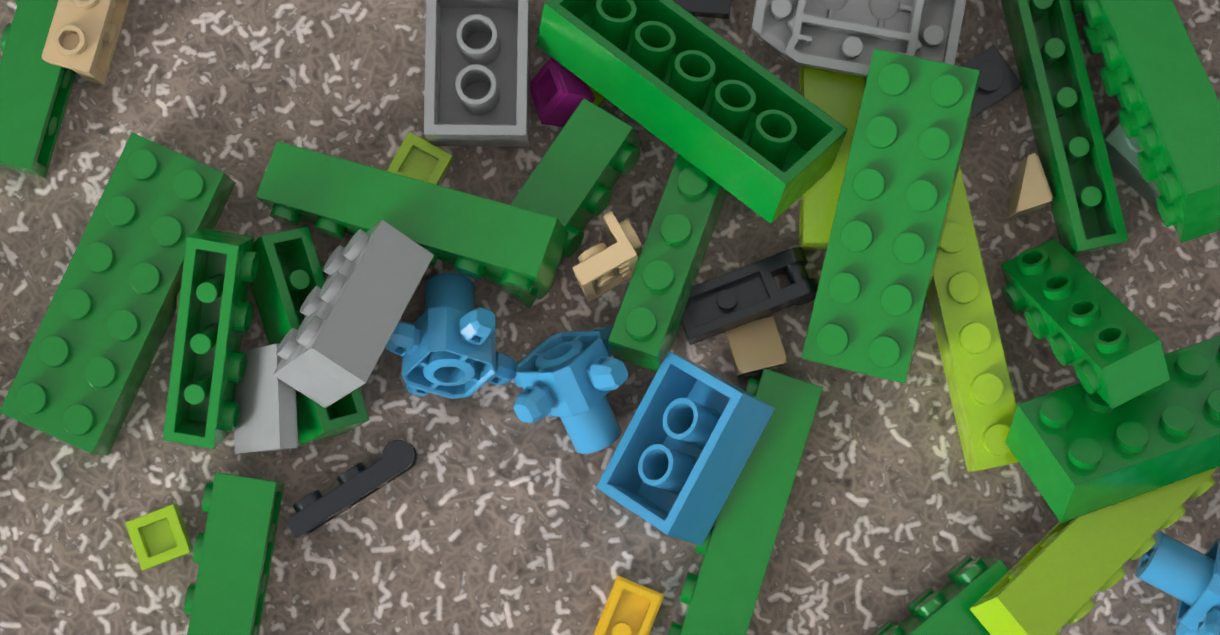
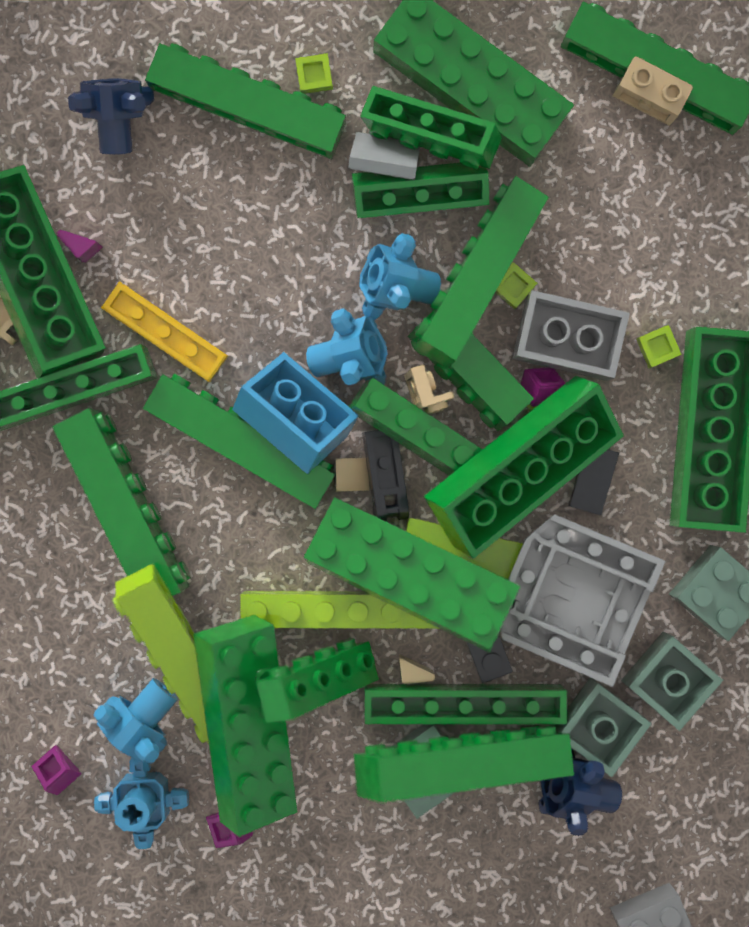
camera: 100 degrees right, 5 degrees up
(352, 314) = (424, 218): light grey brick -> none
(354, 487) = (319, 202): black plate -> none

